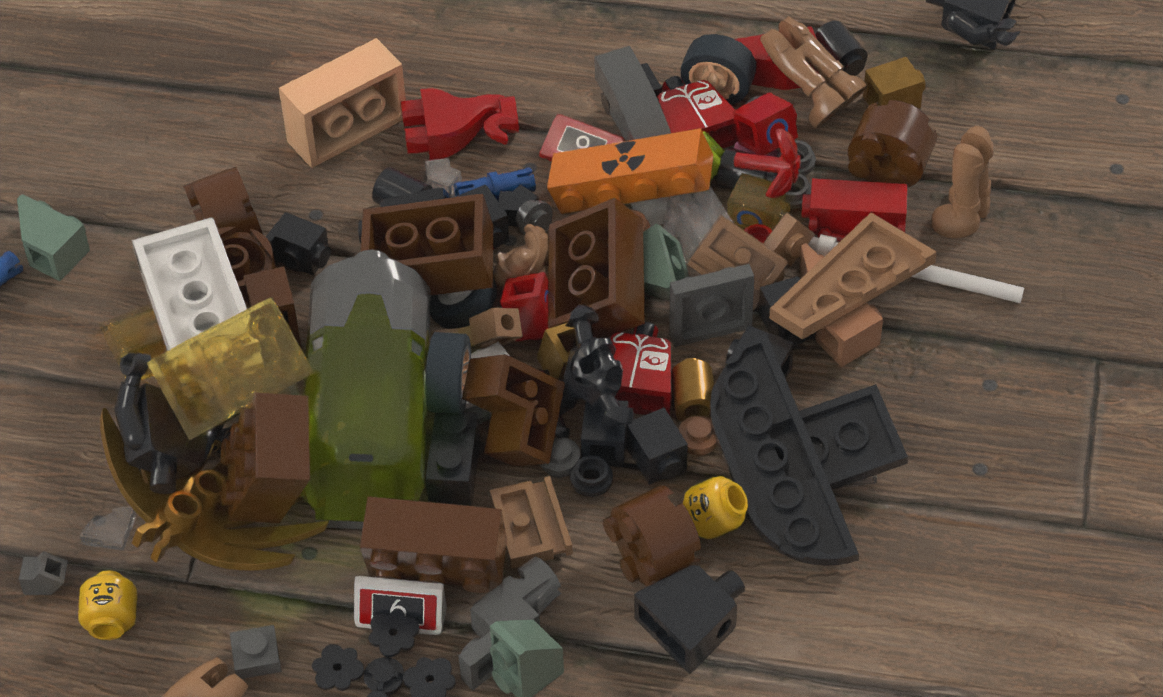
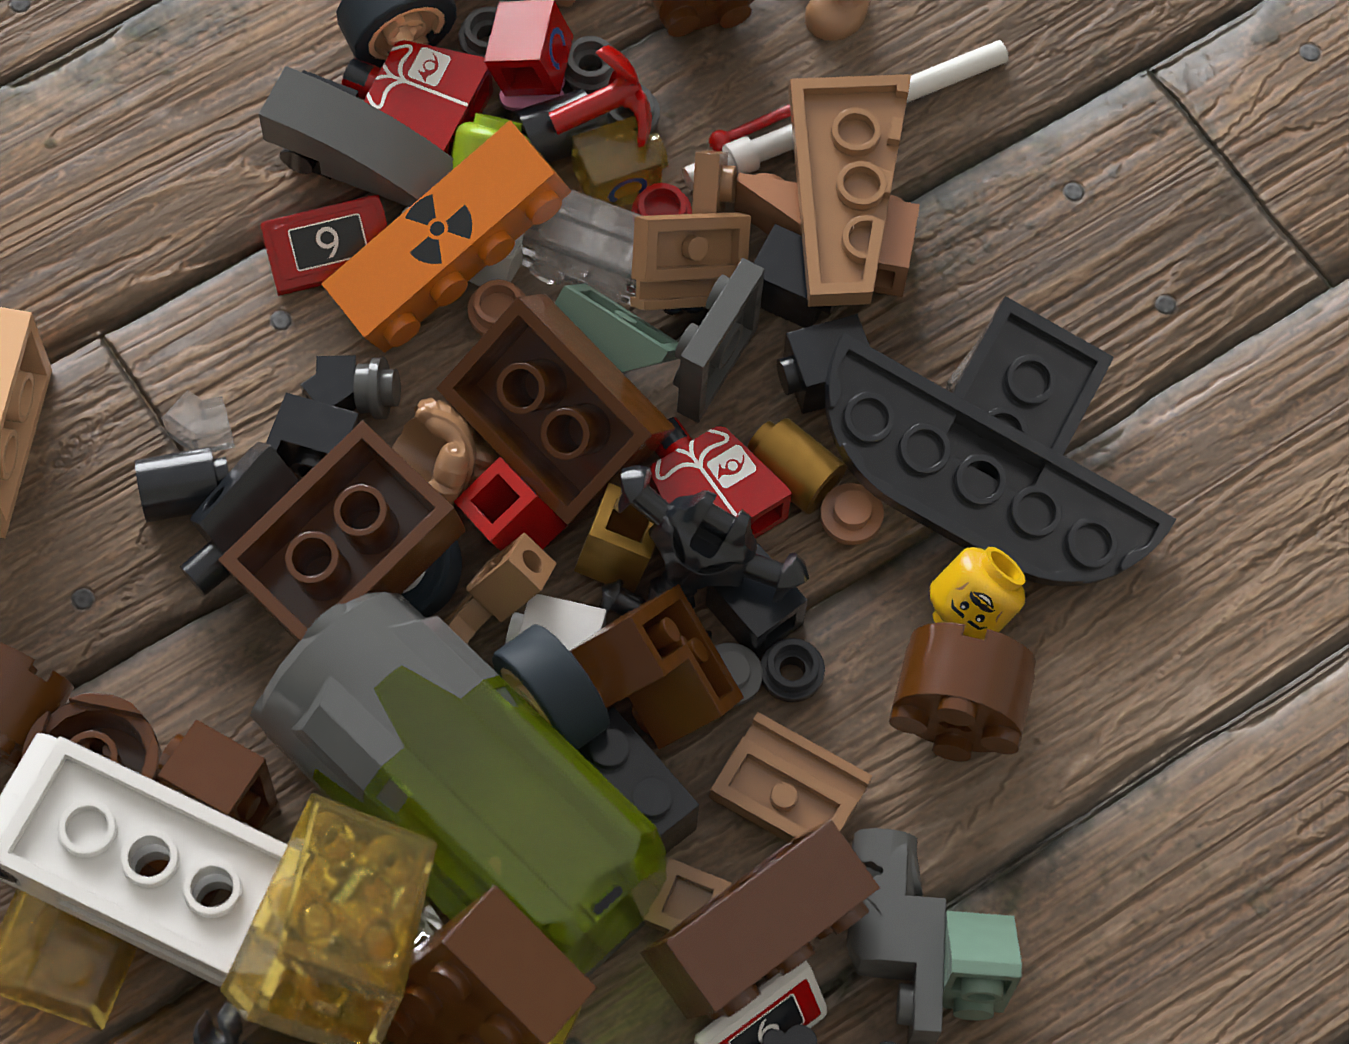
camera: 50 degrees left, 15 degrees up
(299, 244) = (127, 658): black brick -> none
(455, 121) = (134, 332): red hips -> none
(499, 182) = (275, 379): blue pin -> none
(657, 446) = (838, 569): black brick -> none
(689, 613) = (1080, 745): black torso -> none
(846, 203) = (731, 80): red brick -> none

